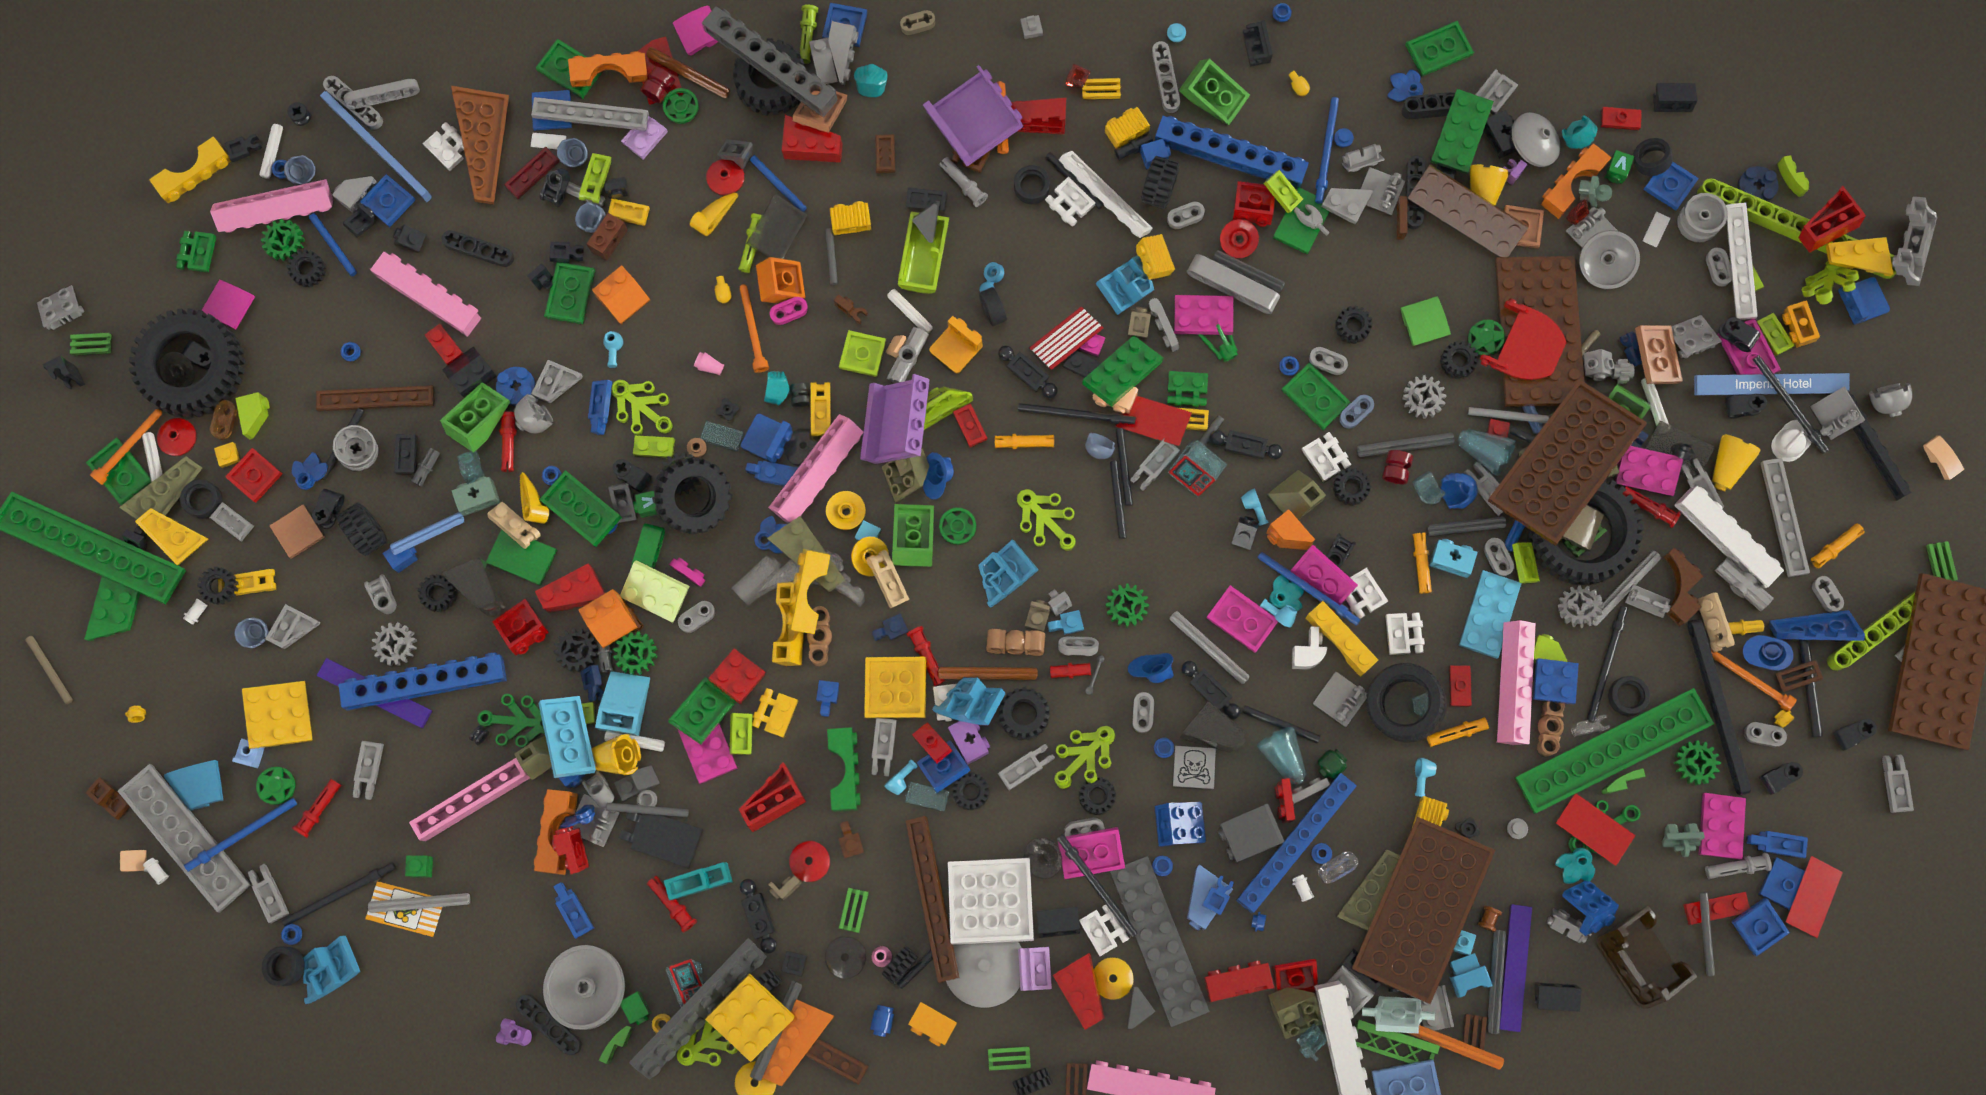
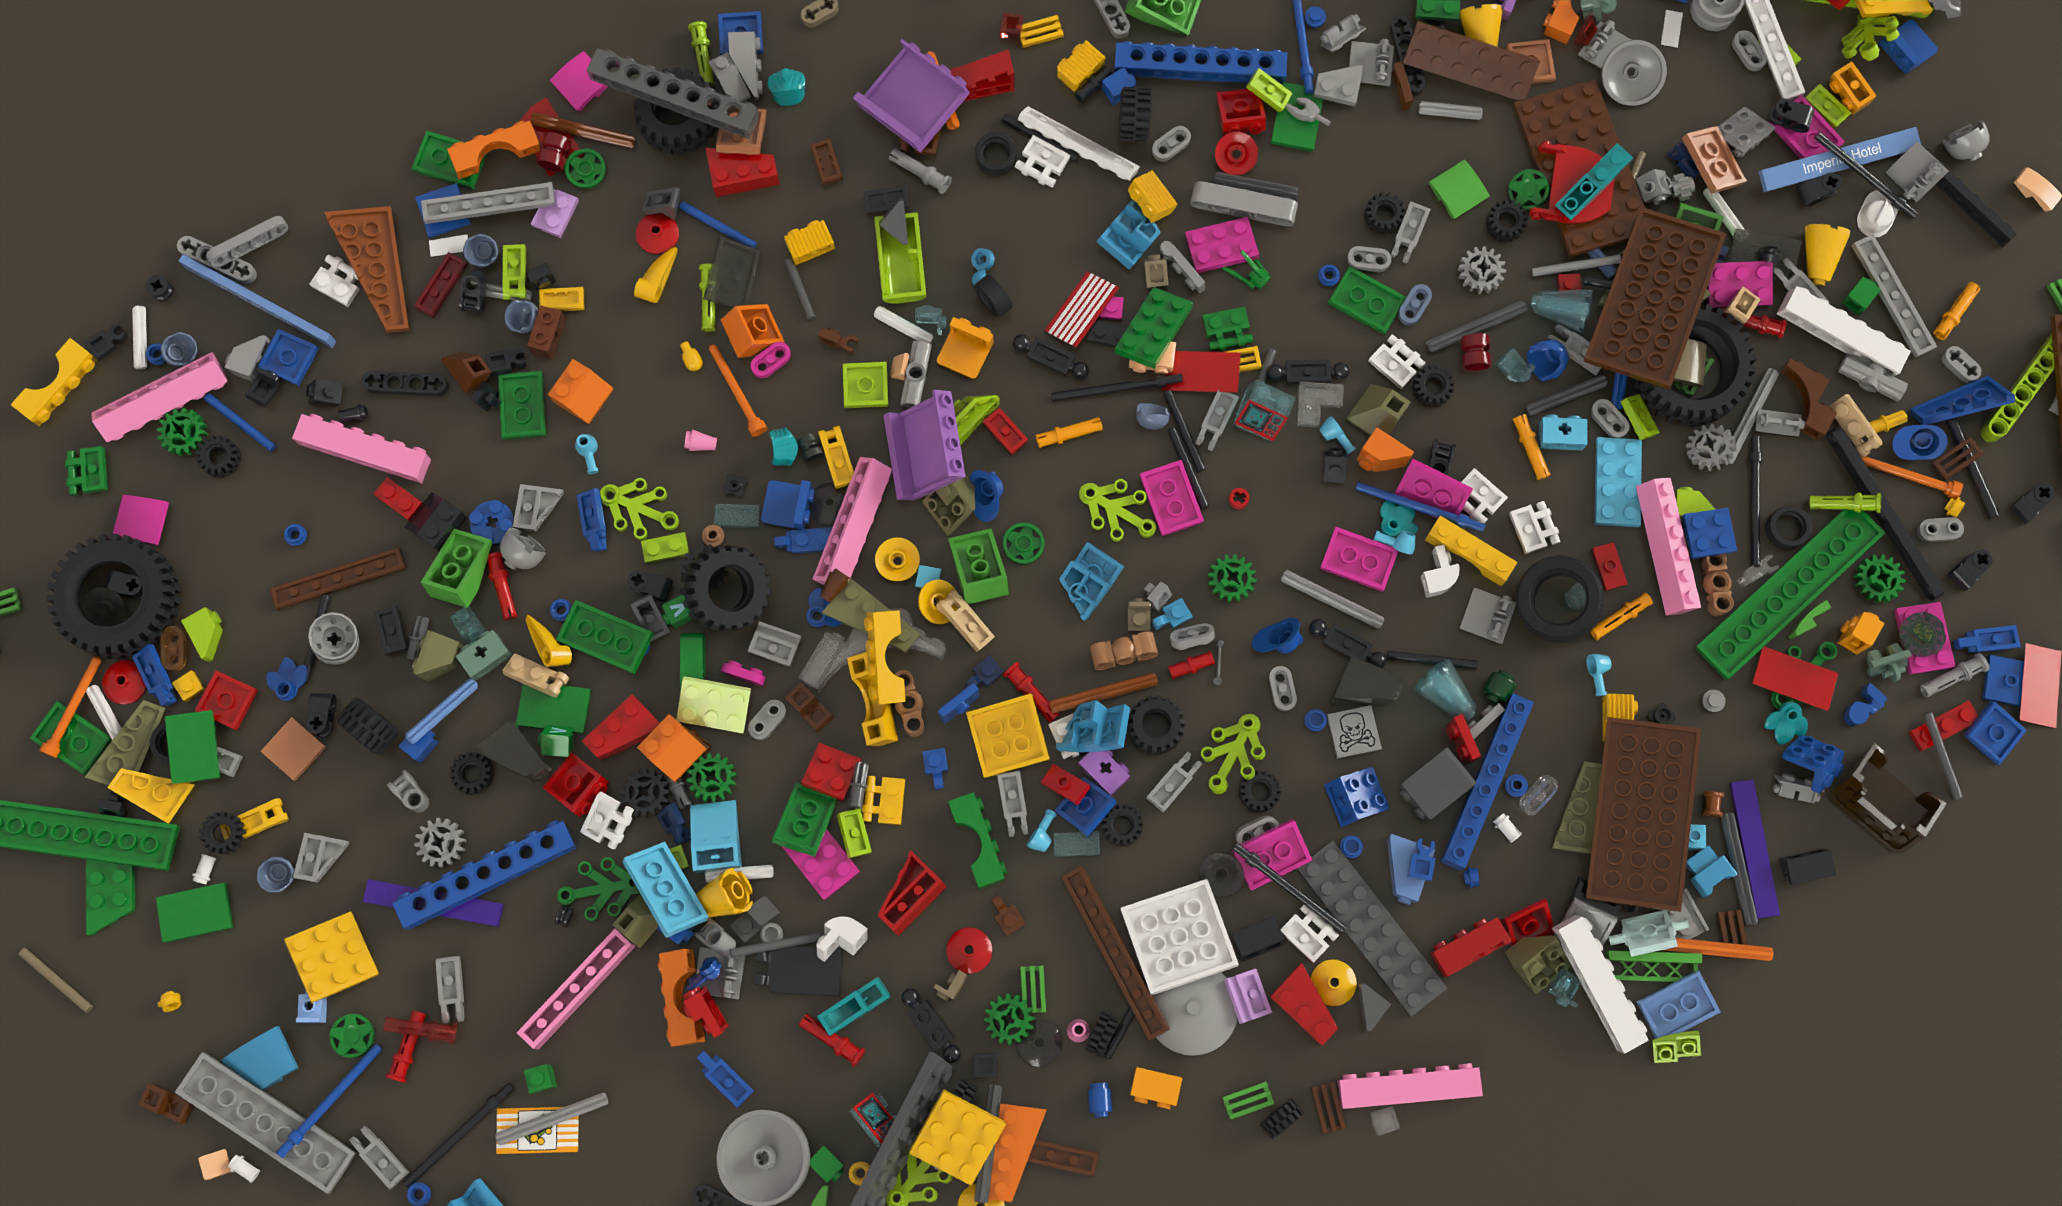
camera: 20 degrees left, 0 degrees up
(177, 645) = (194, 912): none -> green tile
(201, 438) = (154, 675): none -> blue hinge
(214, 507) = (192, 747): none -> green tile
(341, 801) = (431, 1030): none -> clear red pin
(427, 263) = (352, 414): none -> black pin
(435, 486) = (436, 656): none -> olive slope
(515, 585) = (556, 741): none -> green brick
(531, 250) = (467, 369): none -> reddish brown slope
(532, 660) = (600, 817): none -> white plate
(705, 815) = (843, 933): none -> white brick
(721, 554) = (774, 644): none -> light grey plate
(735, 615) = (809, 707): none -> reddish brown slope
(756, 694) = (858, 785): none -> dark grey axle
(784, 517) = (834, 585): none -> reddish brown cone
(820, 936) = (1000, 1015): none -> green gear
(860, 648) = (959, 703): none -> blue plate
(935, 308) = (929, 314): none -> clear light blue bracket
(1095, 522) = (1171, 498): none -> dark pink plate
(1150, 543) = (1237, 505): none -> red bush
(1244, 468) = (1313, 397): none -> clear plate
(1372, 345) = (1410, 229): none -> light grey hinge
(1438, 250) = (1450, 110): none -> light grey axle
(1543, 347) = (1594, 182): none -> teal slope
(1642, 874) = (1859, 712): none -> blue leg
(1644, 490) = (1742, 306): none -> tan slope
(1664, 804) = (1860, 632): none -> light orange brick
(1696, 690) = (1857, 503): none -> lime pin
(1720, 822) = (1922, 634): none -> tile
(1755, 509) = (1861, 295): none -> green brick

